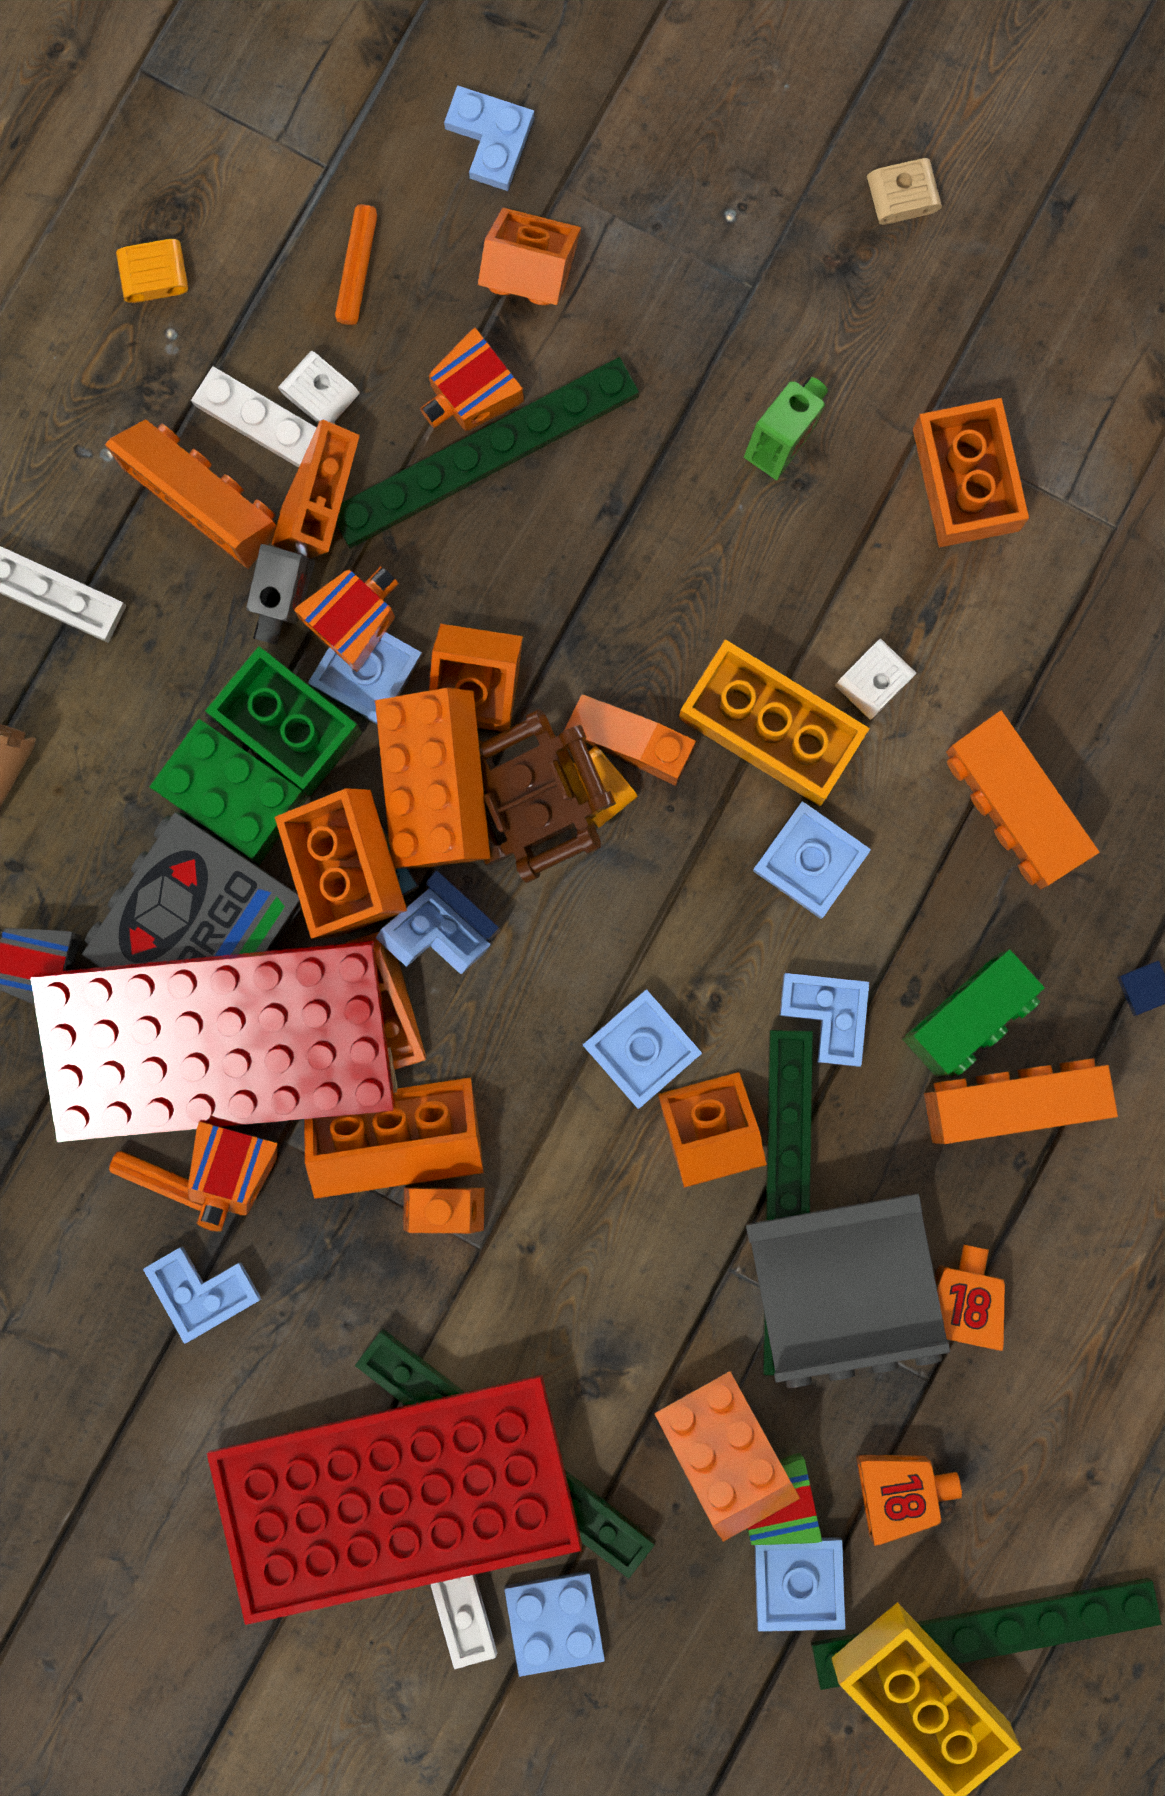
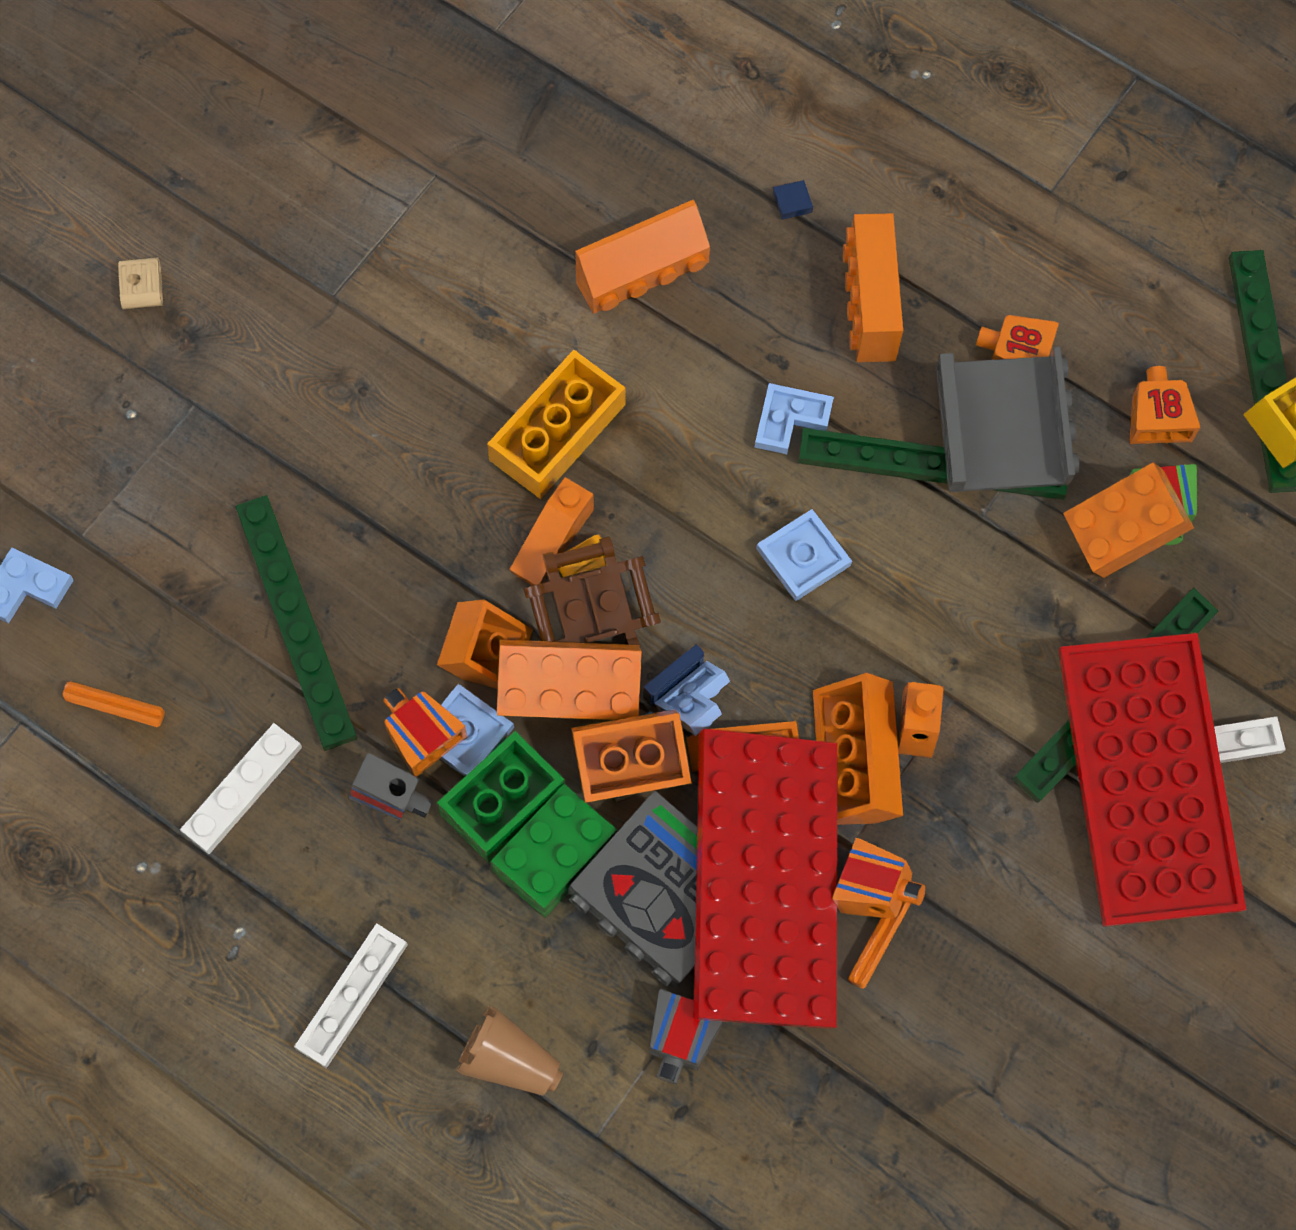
camera: 90 degrees left, 15 degrees down
(152, 270) = (83, 873): light orange piece -> none
(193, 490) = (291, 851): orange slope -> none
(199, 1305) = (982, 924): light blue plate -> none
(316, 492) = (314, 751): orange slope -> none
(318, 389) = (217, 745): white piece -> none
(471, 385) = (237, 620): torso -> none
(528, 256) = (137, 563): orange slope -> none
(554, 1623) = (1250, 674): light blue plate -> none
(712, 1129) = (872, 509): orange slope -> none
(786, 426) = (311, 378): bright green torso -> none
(800, 1586) = (1228, 490): light blue plate -> none
(811, 860) = (667, 414): light blue plate -> none
(875, 679) = (530, 352): white piece -> none
(970, 472) = (379, 260): orange brick -> none
(975, 1015) = (803, 309): green brick -> none

